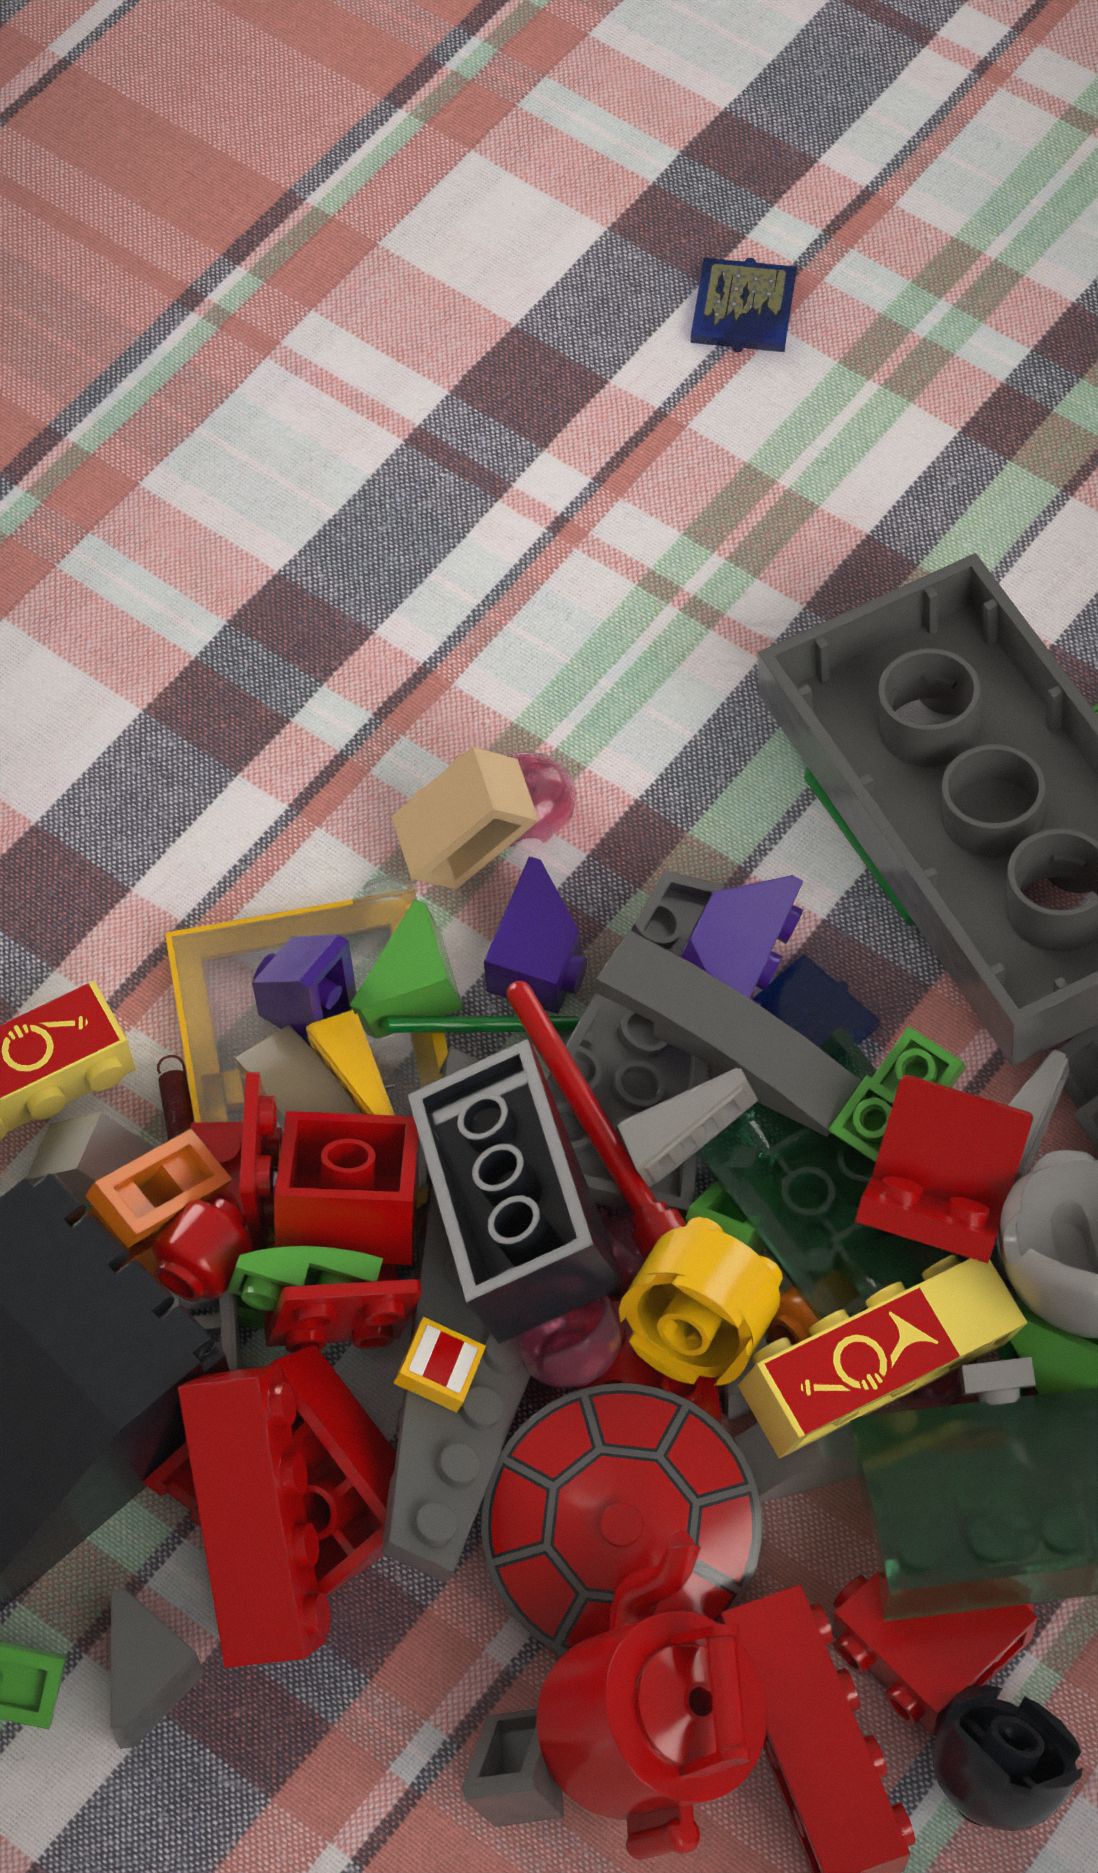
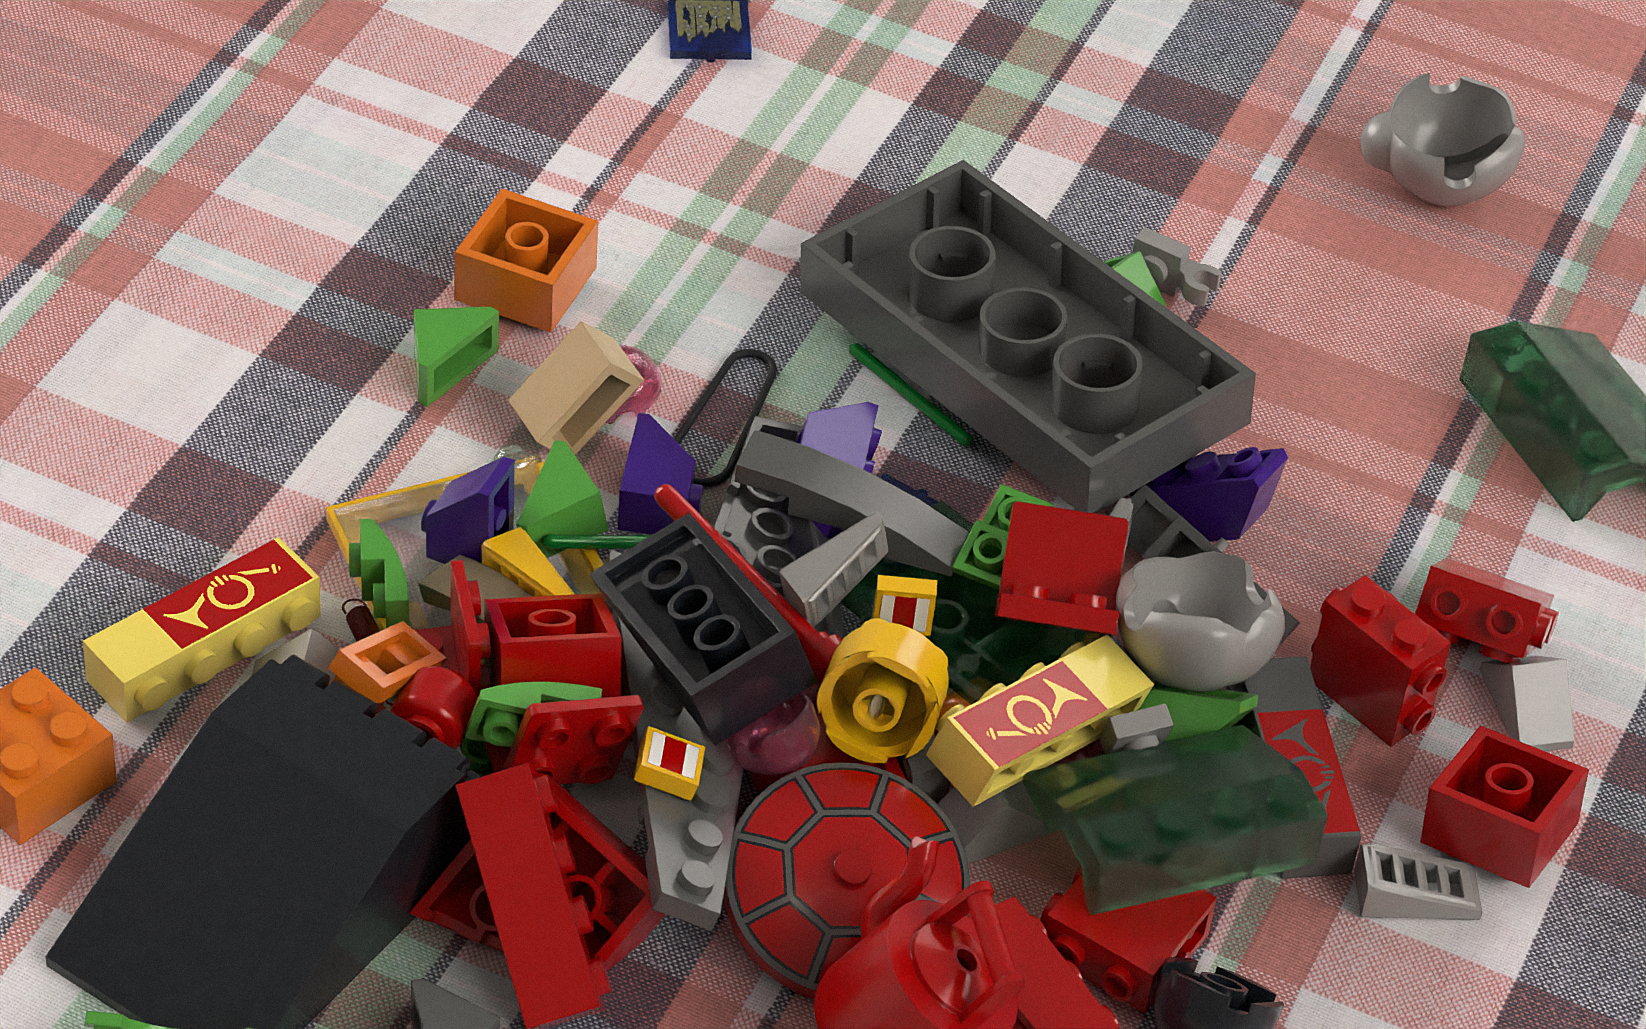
camera: 20 degrees left, 15 degrees down
(193, 1051) = (380, 573): none -> bright green slope
(344, 732) = (451, 346): none -> bright green slope
(452, 626) = (526, 260): none -> orange brick
(623, 825) = (755, 410): none -> black piece
(755, 1182) = (906, 602): none -> tile

